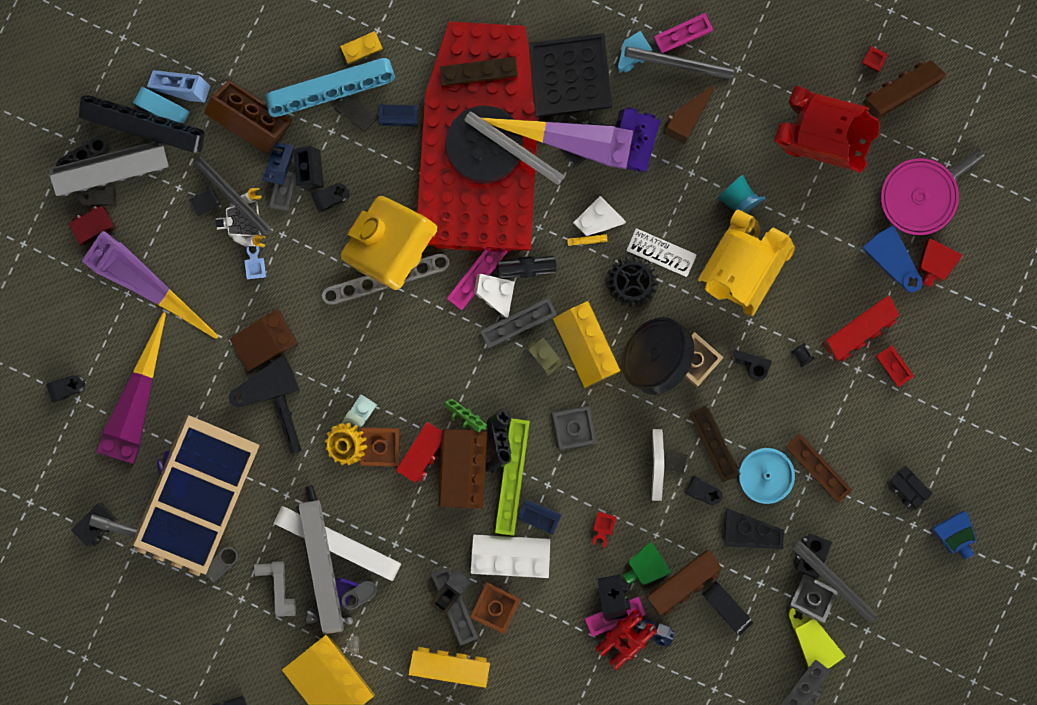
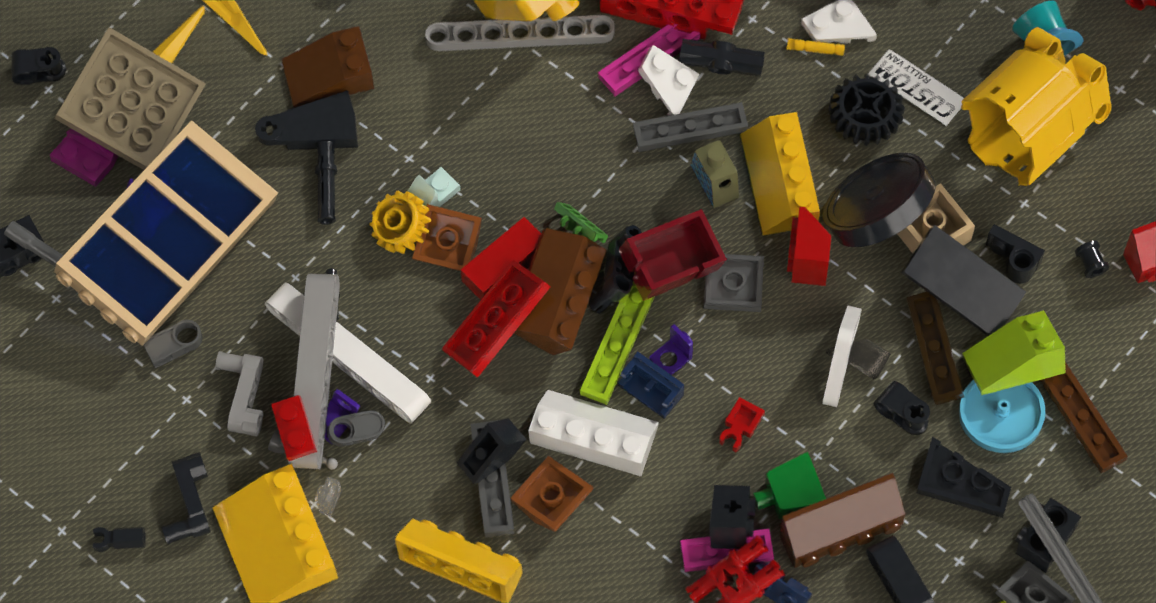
camera: 20 degrees right, 20 degrees down
(139, 403) = (129, 100): none -> dark tan plate
(259, 651) = (187, 472): none -> black beam
(321, 613) = (294, 428): none -> red plate
(428, 500) = (495, 318): none -> red tile
(529, 427) = (672, 254): none -> dark red piece
(552, 484) = (680, 345): none -> dark purple bracket
(621, 399) = (808, 250): none -> red slope
(724, 397) = (963, 281): none -> black tile
(767, 439) = (1016, 354): none -> lime slope

